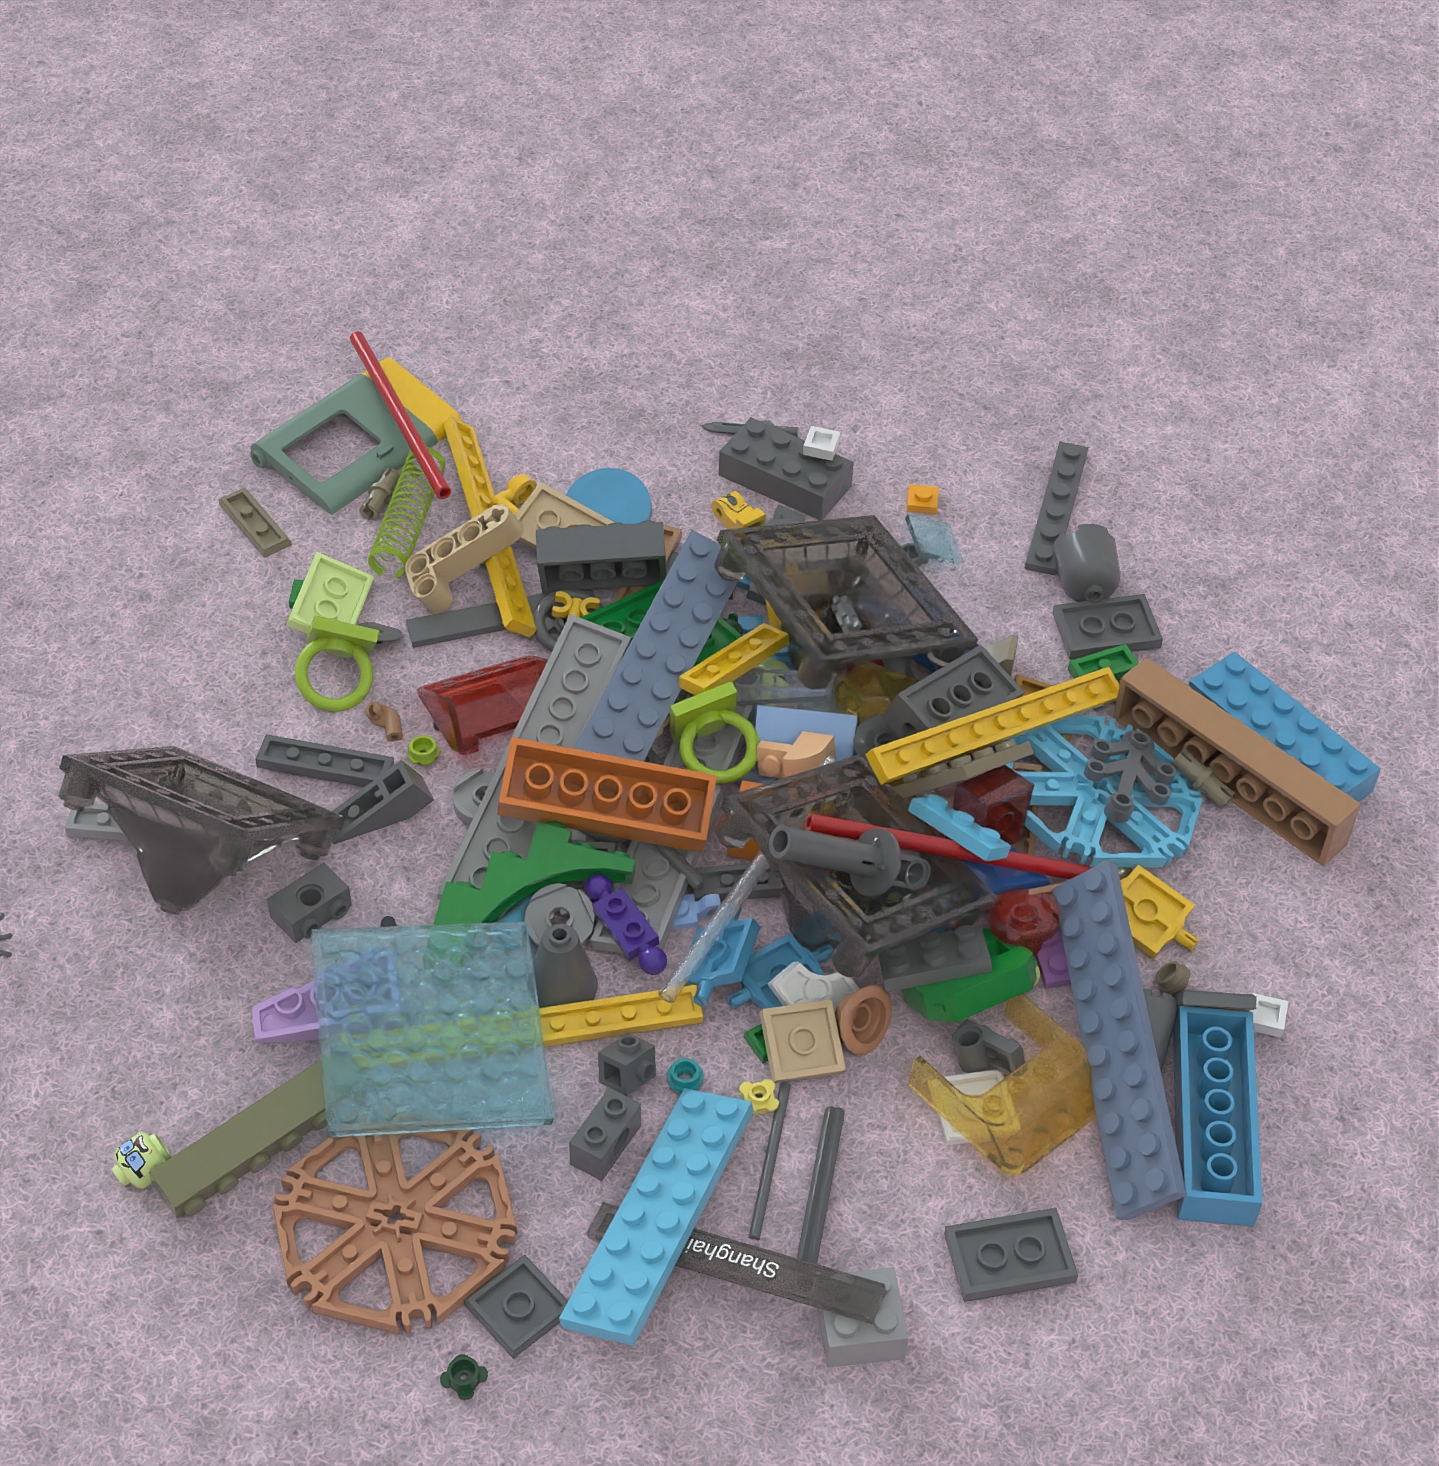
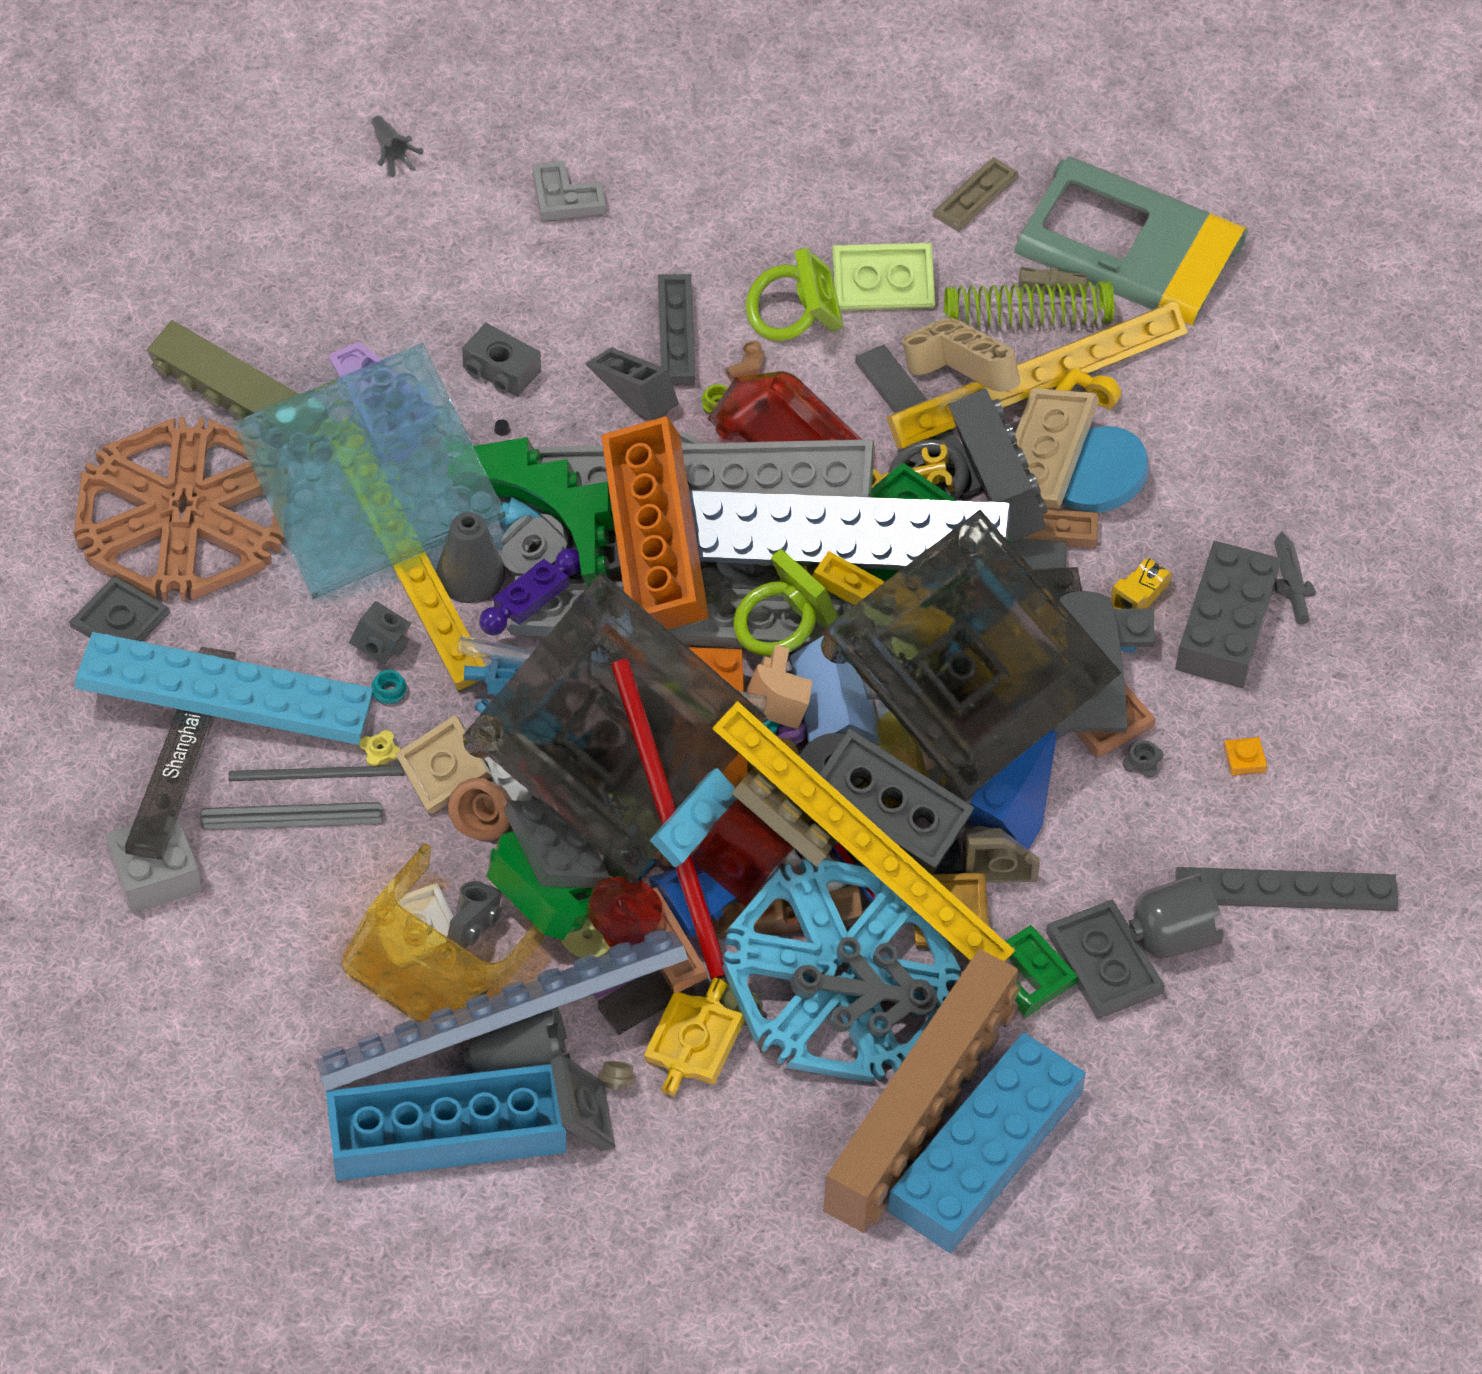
camera: 75 degrees right, 5 degrees up
(138, 1158) = (199, 317): yellowish green head -> none
(192, 817) = (545, 227): clear smoke piece -> none
(386, 633) = (858, 326): dark grey piece -> none
(400, 416) = (1147, 253): red piece -> none
(462, 1365) = (40, 585): dark green plate -> none
(605, 1134) = (301, 634): dark grey brick -> none
(821, 443) = (1246, 620): white plate -> none
(846, 614) = (947, 666): dark grey axle -> none
(871, 861) = (599, 735): dark grey piece -> none
(934, 539) = (1177, 773): clear light blue piece -> none
(1010, 1254) = (252, 975): dark grey plate -> none
(1203, 778) = (890, 1065): dark tan pin -> none
(1269, 1015) = (593, 1166): white plate -> none

